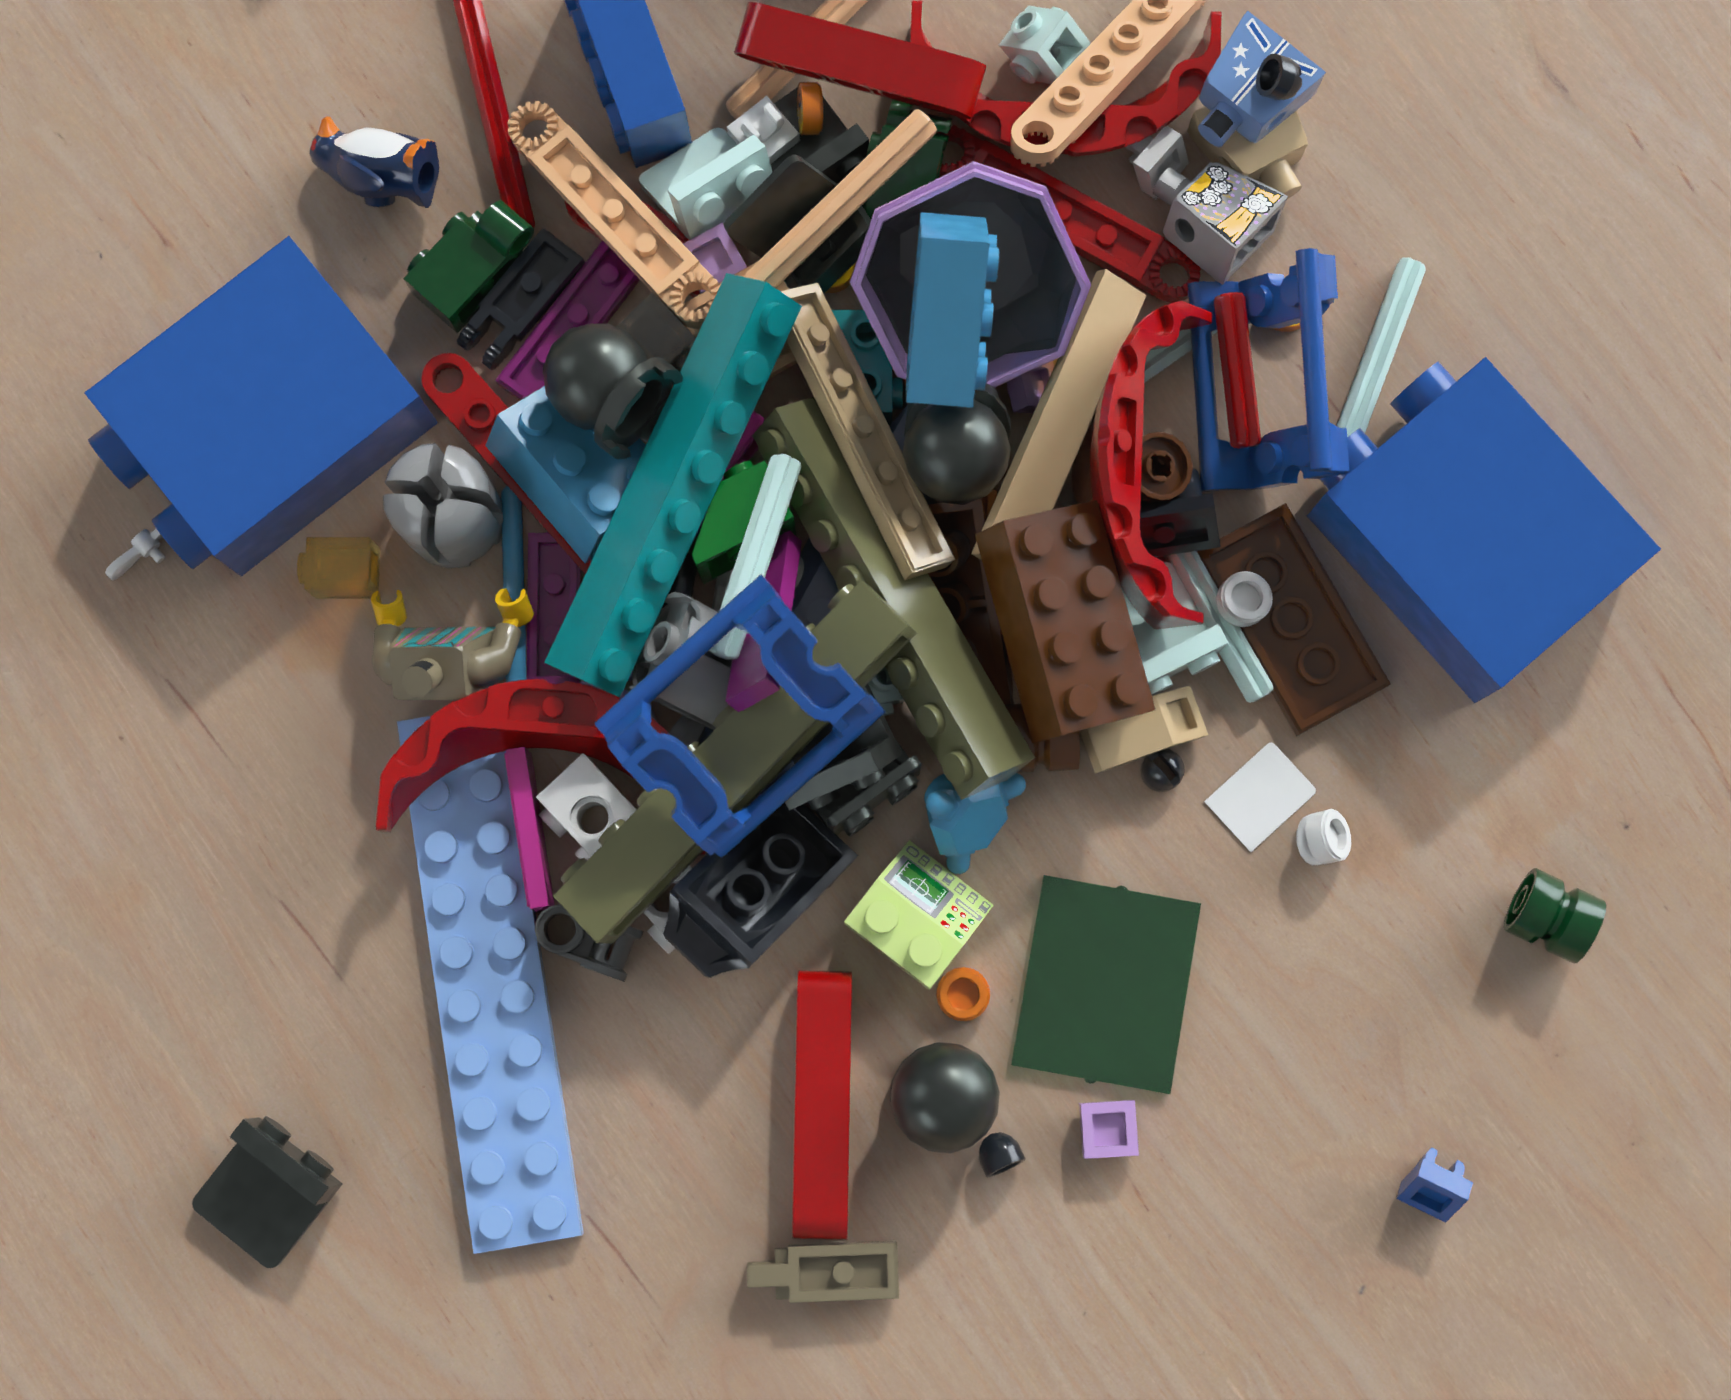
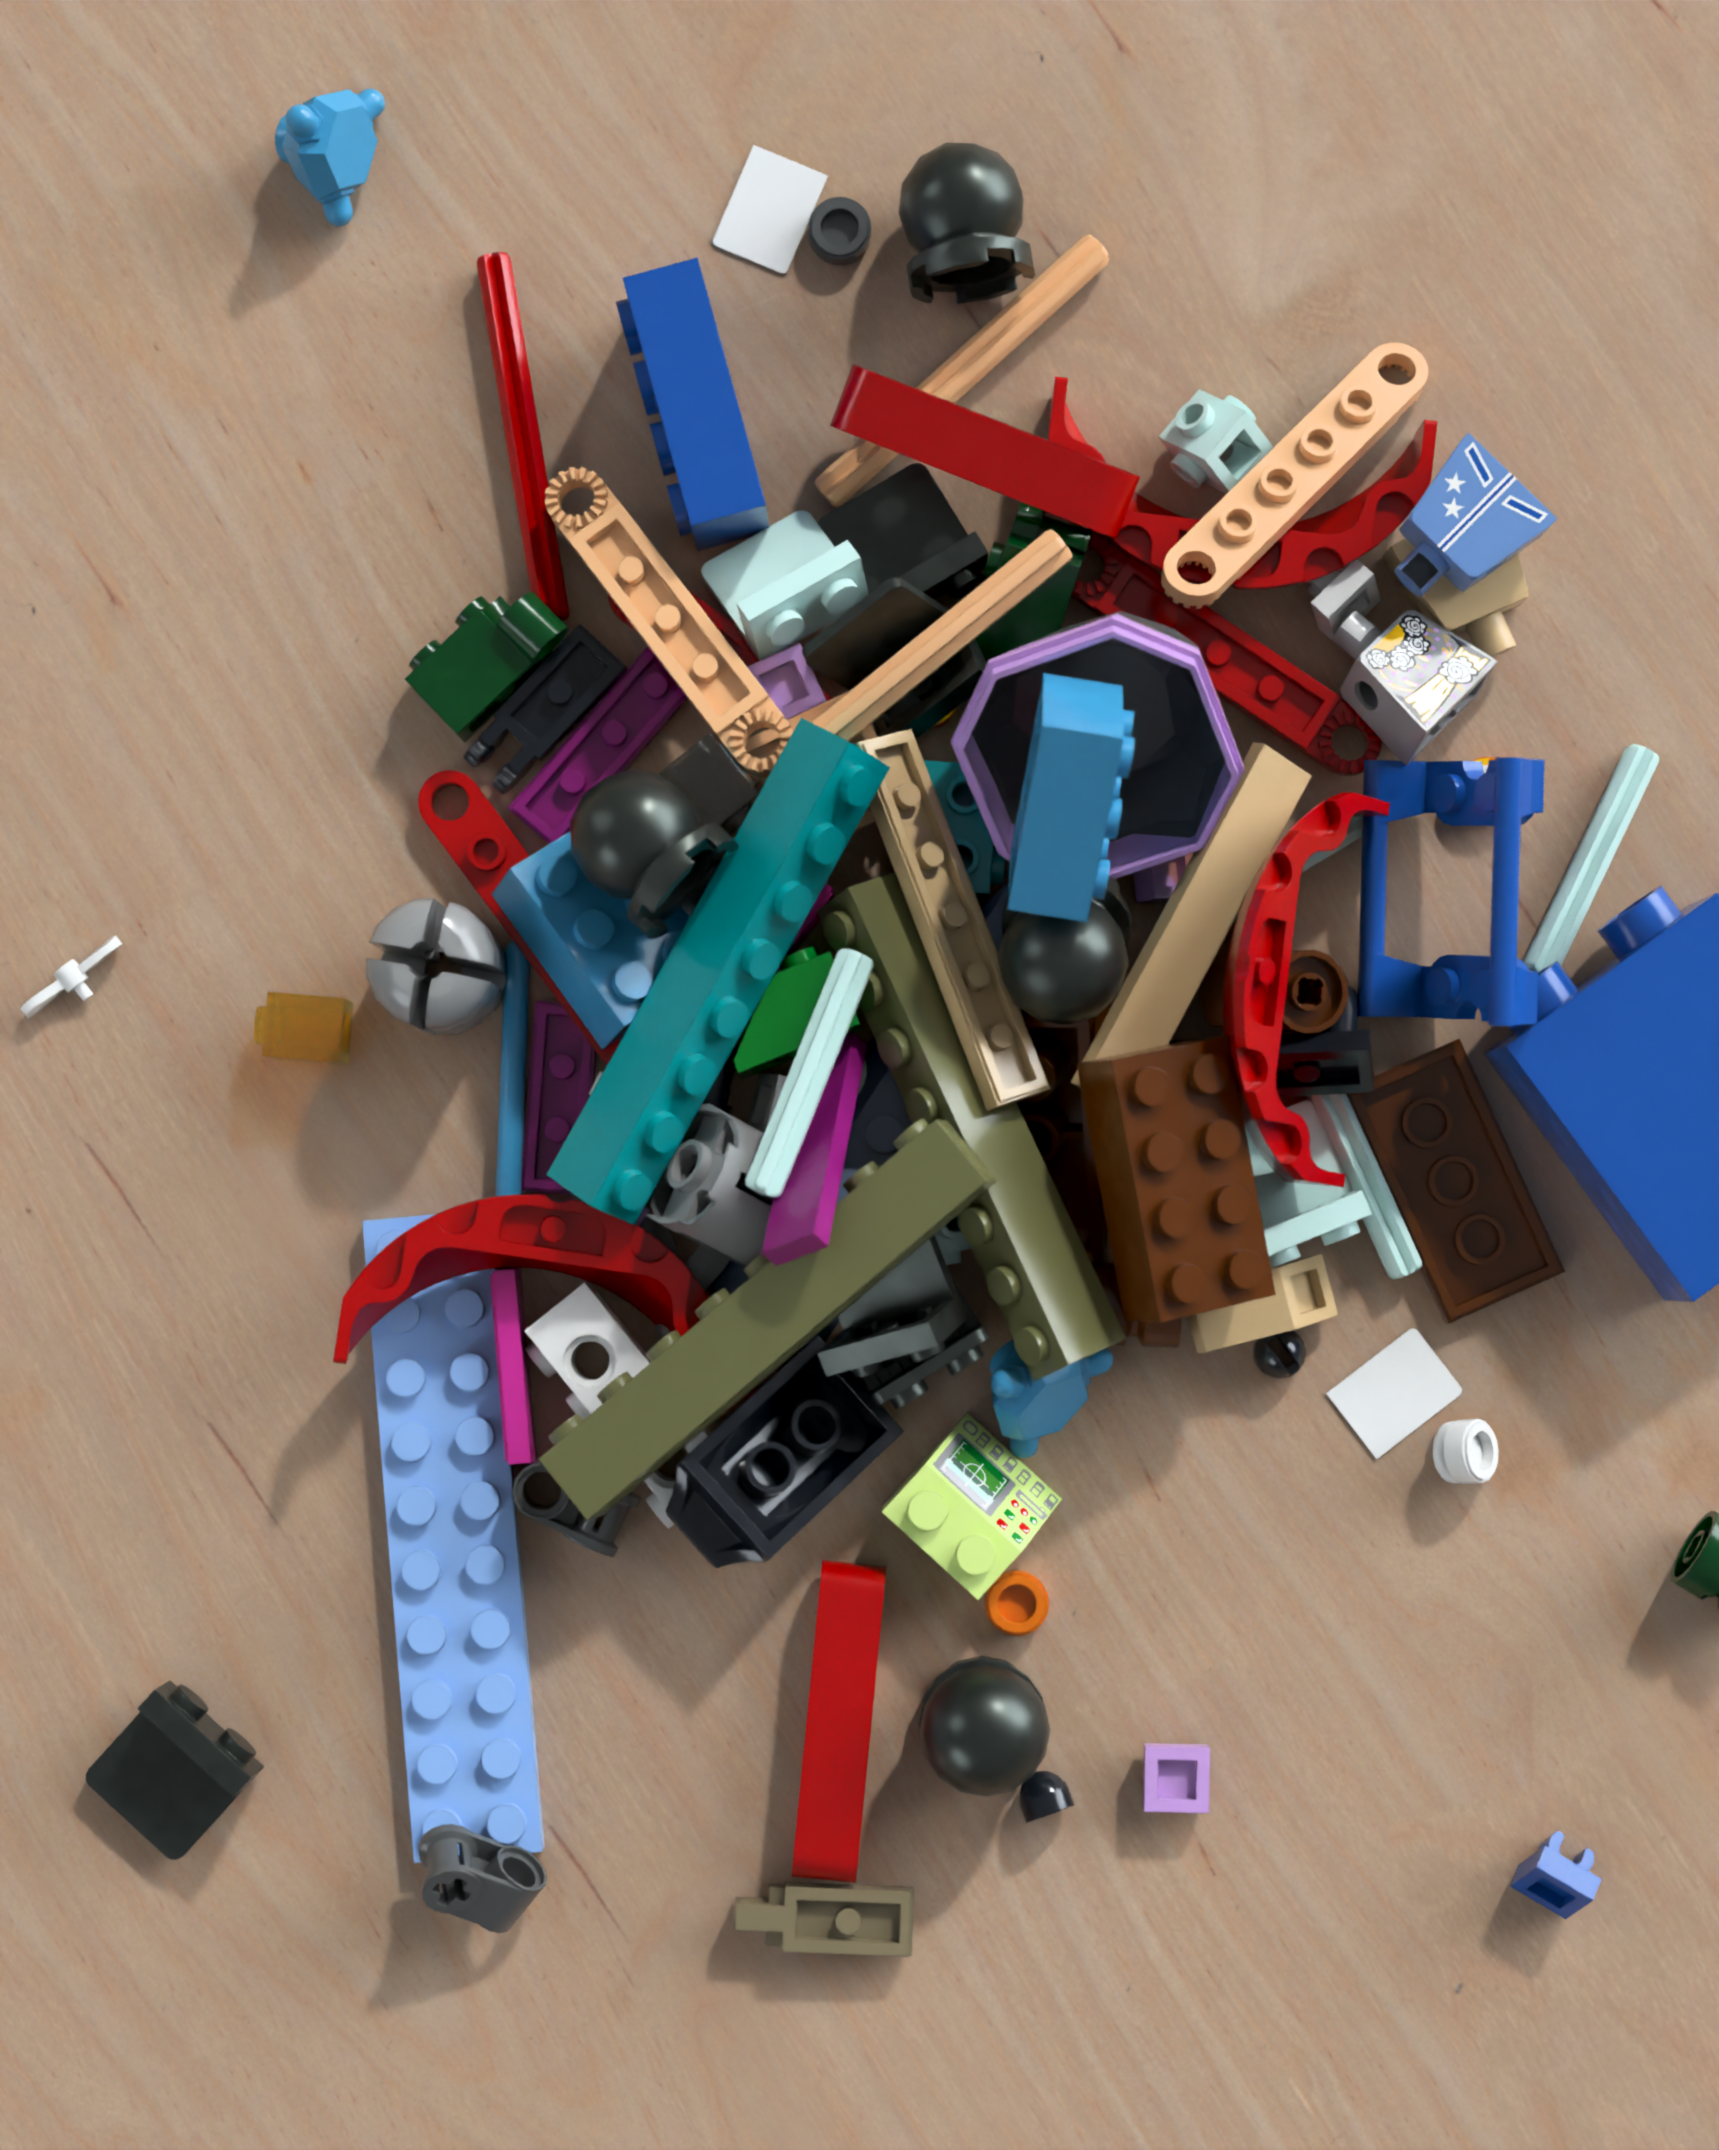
camera: 10 degrees right, 5 degrees up
(255, 412) = (215, 832): blue brick -> none
(377, 163) = (382, 527): dark blue animal -> none
(445, 660) = (426, 1155): dark tan torso -> none
(534, 1265) = (484, 1883): none -> dark grey piece
(768, 126) = (861, 521): white tile -> none
(787, 655) = (839, 1207): blue piece -> none
(810, 108) = (918, 501): orange tile -> none
(1106, 984) = (1188, 1604): clear green piece -> none
(1237, 370) = (1415, 874): red axle -> none
(1244, 599) = (1396, 1155): white tile -> none
(1278, 77) = (1498, 514): black hinge -> none

